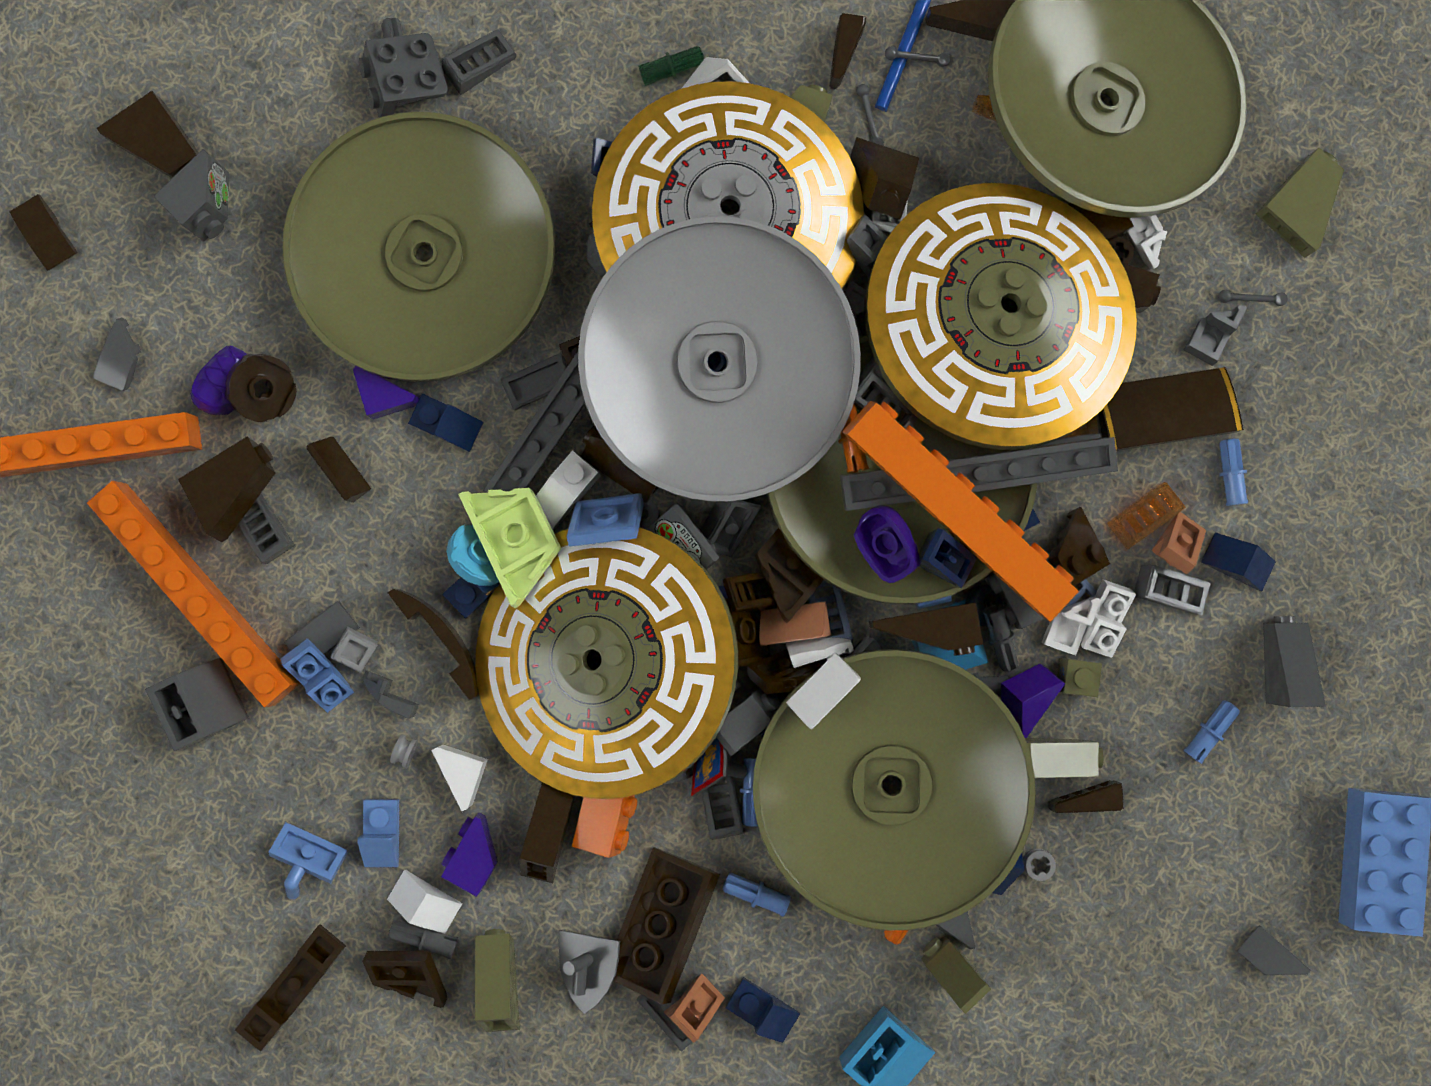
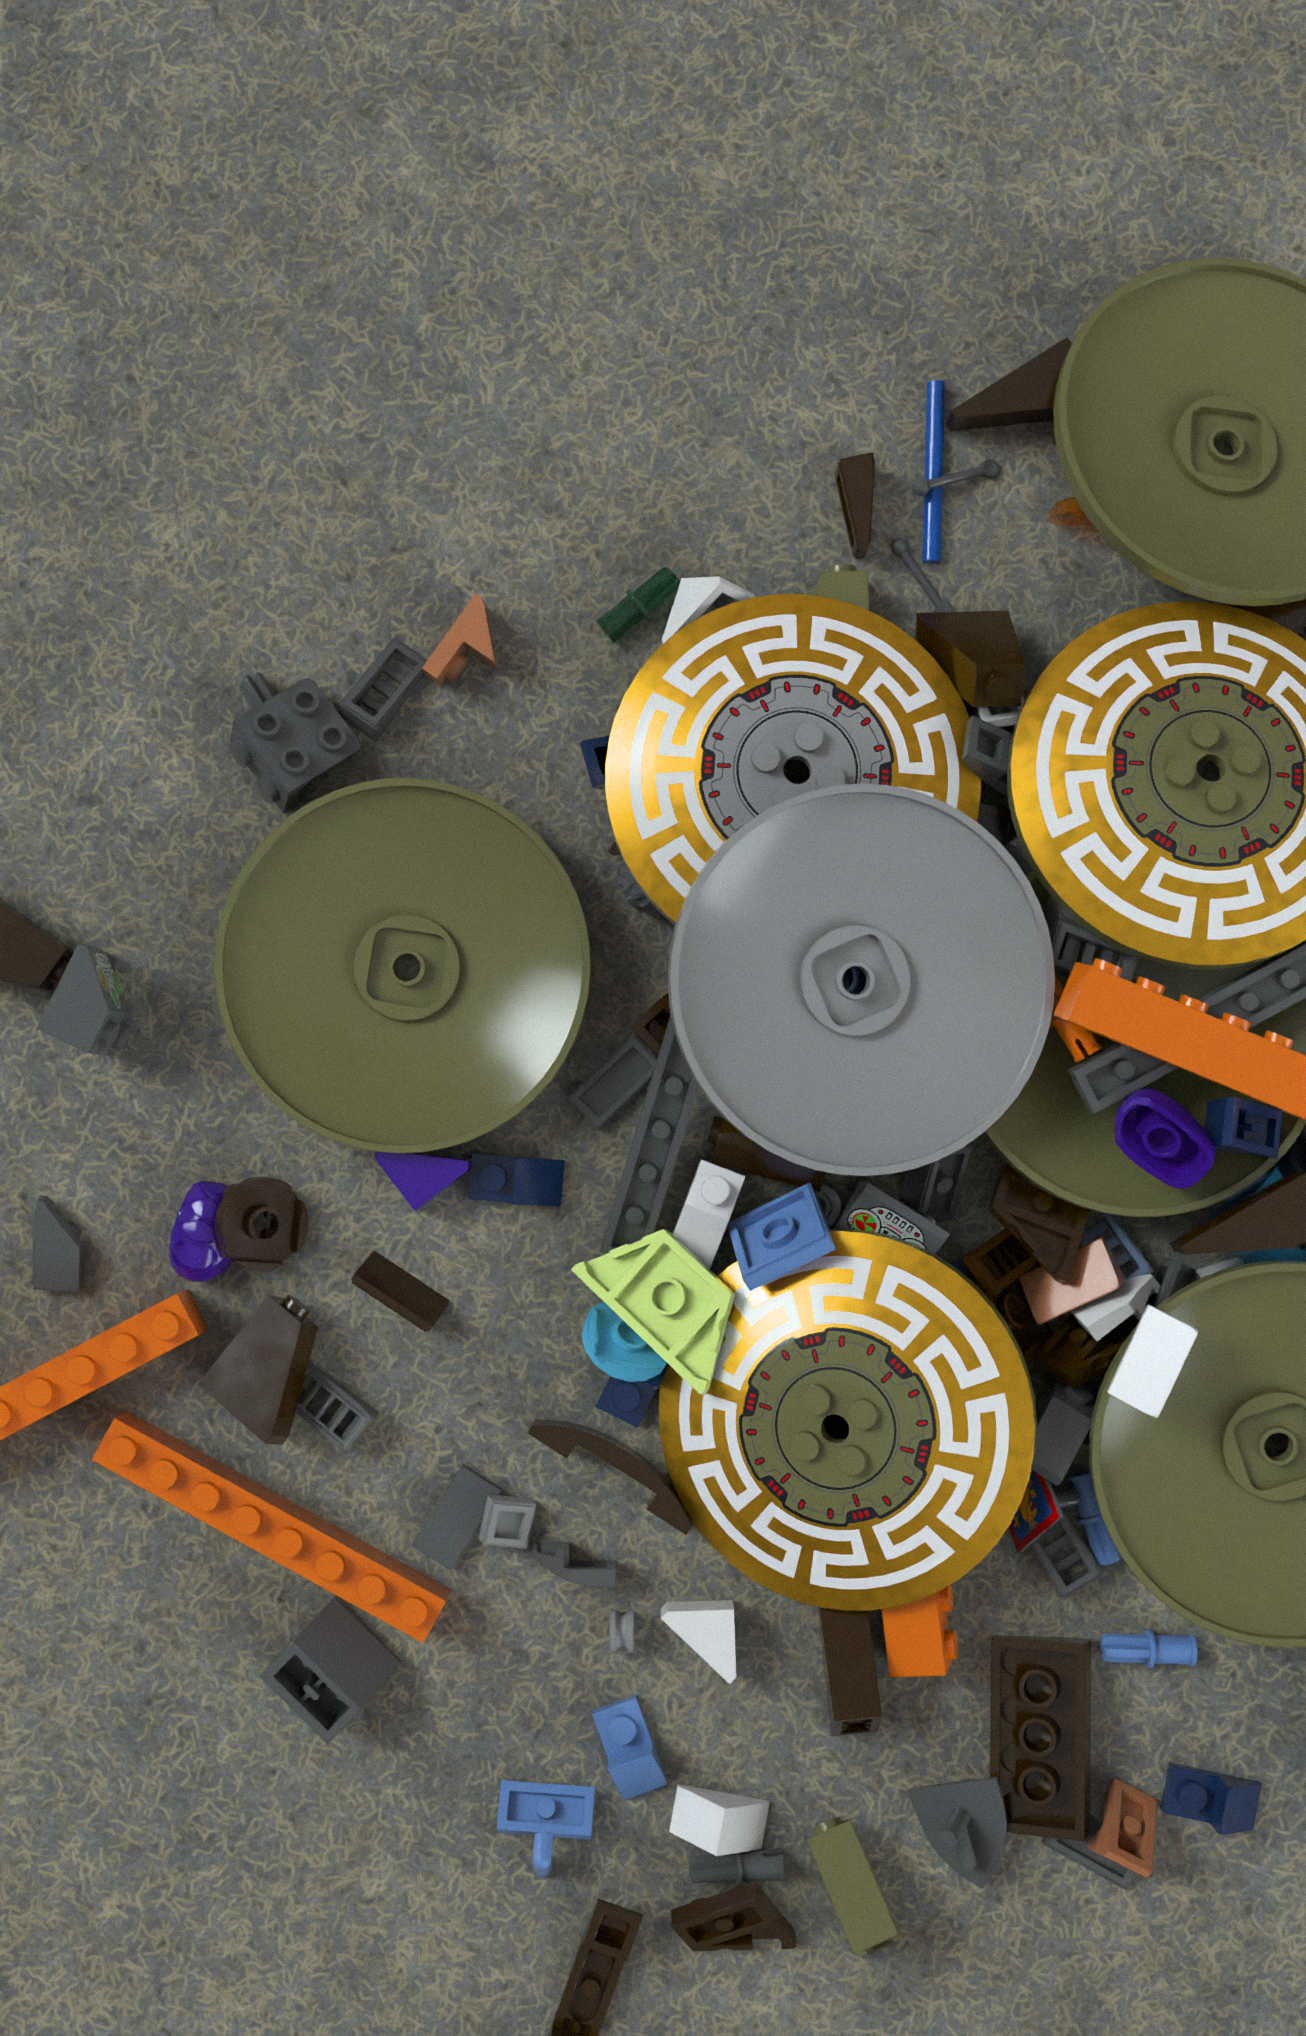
camera: 15 degrees left, 0 degrees up
(317, 675) = (472, 1573): medium blue slope -> none
(473, 859) = (765, 1739): dark purple slope -> none
(547, 42) = (469, 633): none -> nougat slope

